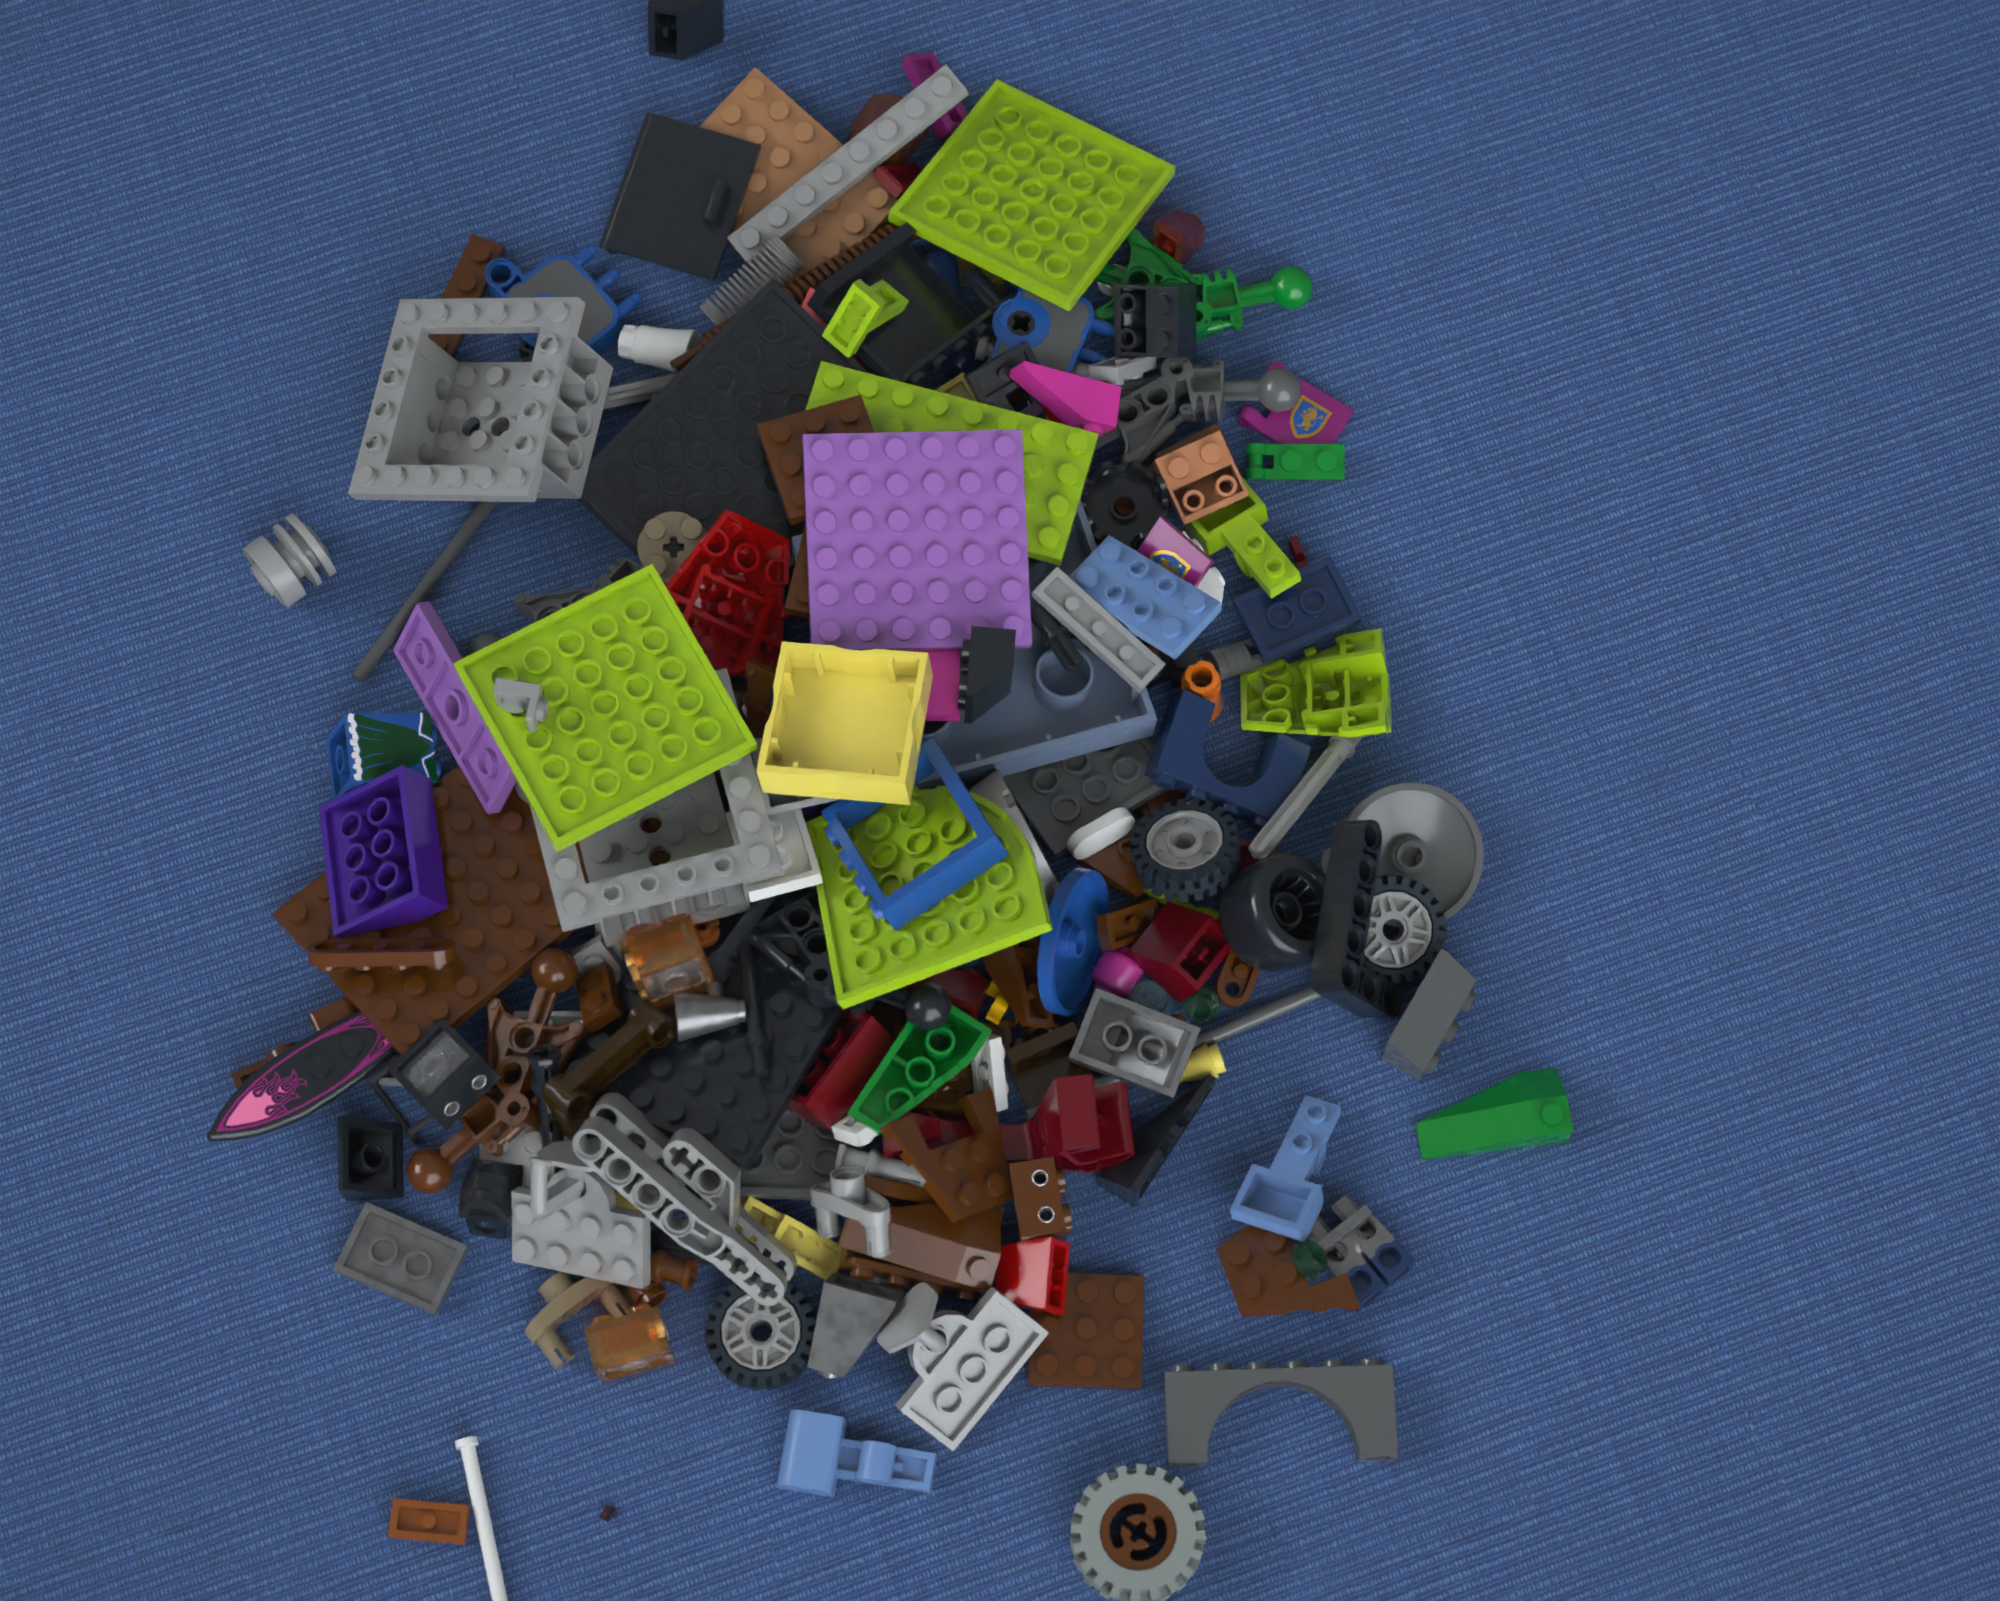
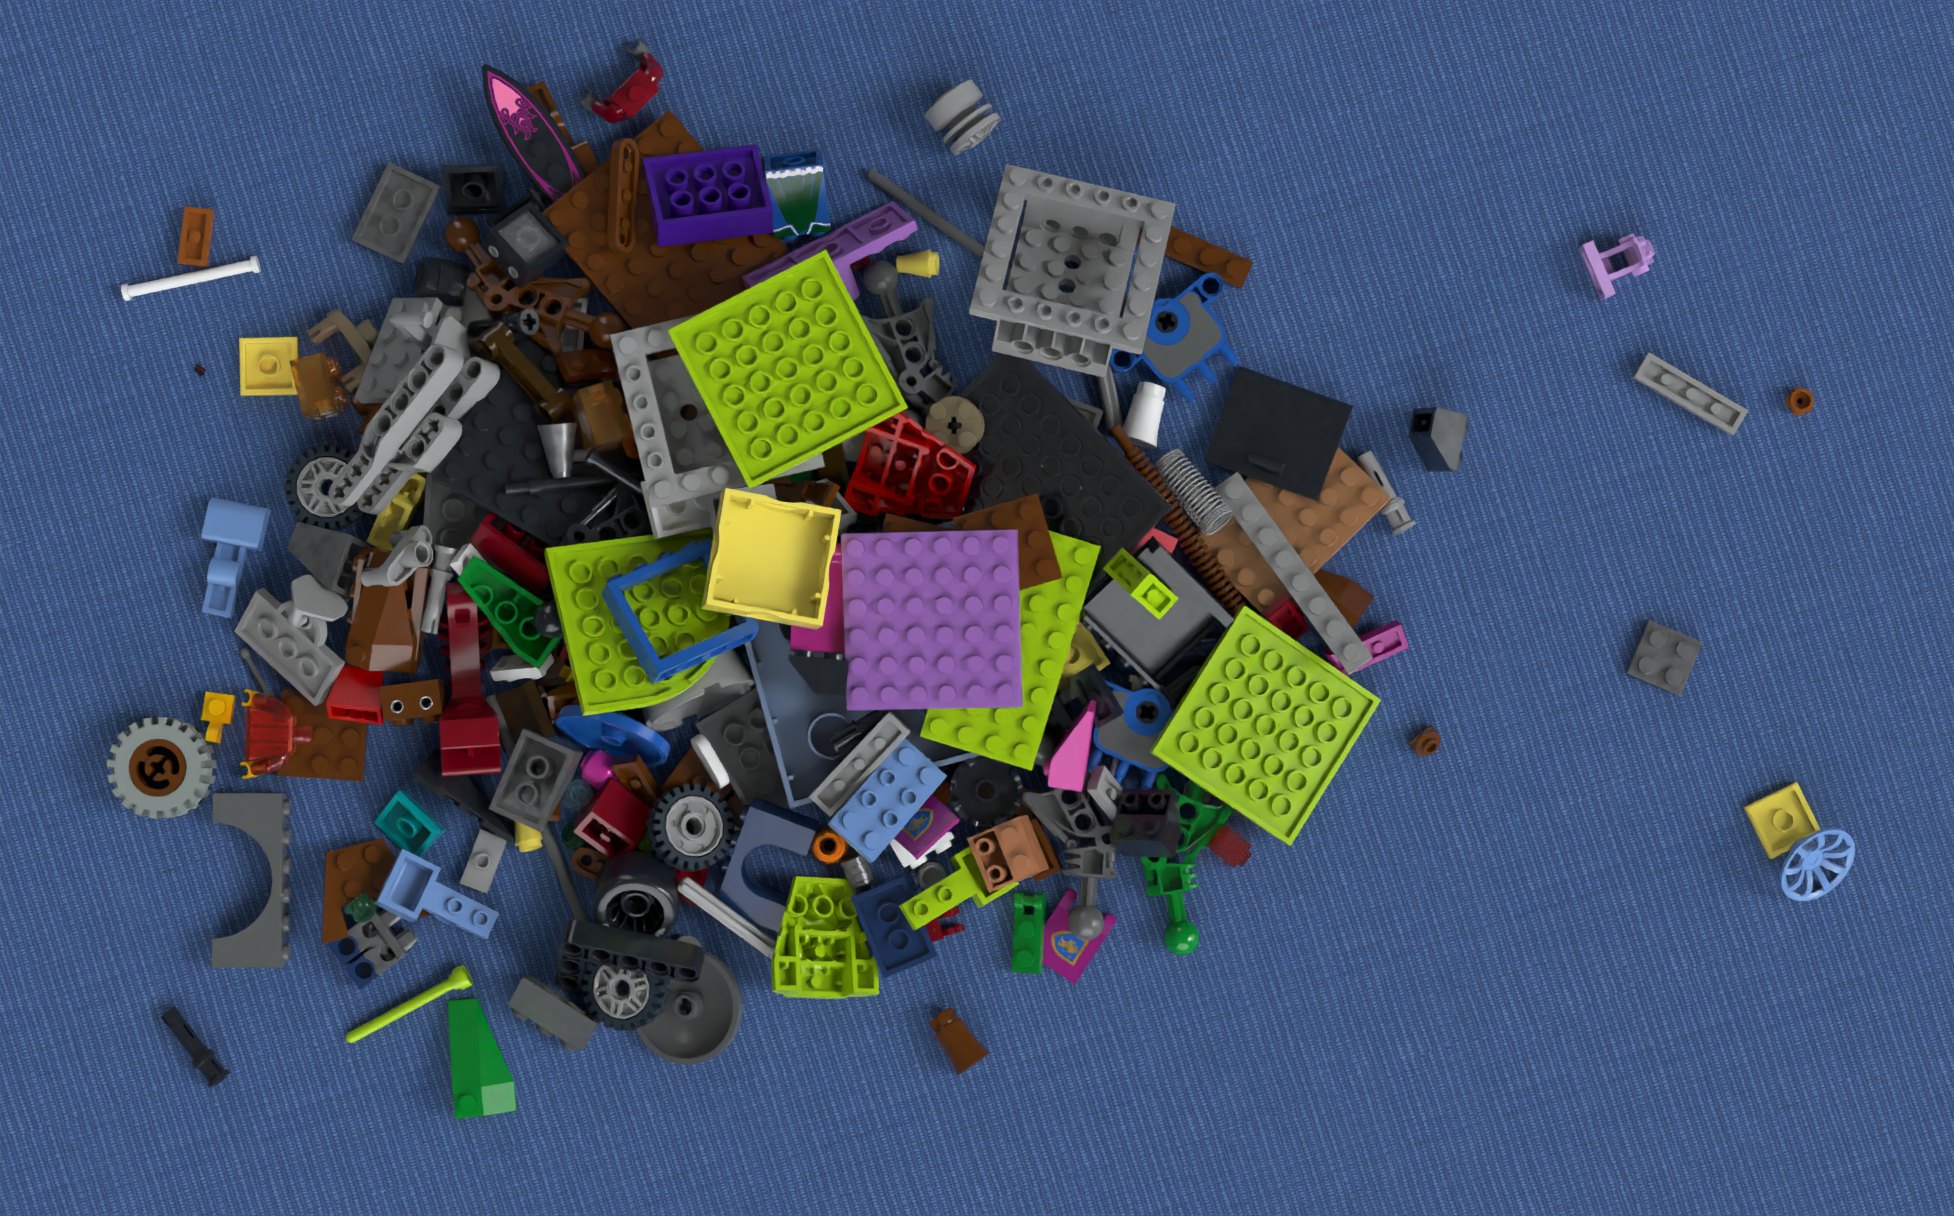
camera: 90 degrees right, 15 degrees up
(250, 962) = (631, 92): none -> dark red torso
(471, 612) = (919, 263): none -> light yellow cone
(520, 696) = (788, 299): light grey bracket -> none
(602, 1420) = (266, 366): none -> light yellow tile
(774, 69) = (1395, 505): none -> light grey pin
(963, 1174) = (432, 648): reddish brown wing -> none
(1036, 1406) = (245, 654): none -> dark grey hinge
(1044, 33) = (1426, 741): none -> reddish brown plate
(1059, 1469) = (217, 710): none -> yellow plate
(1088, 1389) = (270, 734): none -> clear red torso
(1197, 1212) = (409, 824): none -> teal slope
(1234, 578) = (930, 874): none -> light grey plate
(1240, 1119) = (483, 861): none -> light grey plate
(1395, 1146) = (456, 980): none -> lime piece
(1433, 536) = (957, 1041): none -> reddish brown plant
(1516, 1469) = (203, 1058): none -> black pin

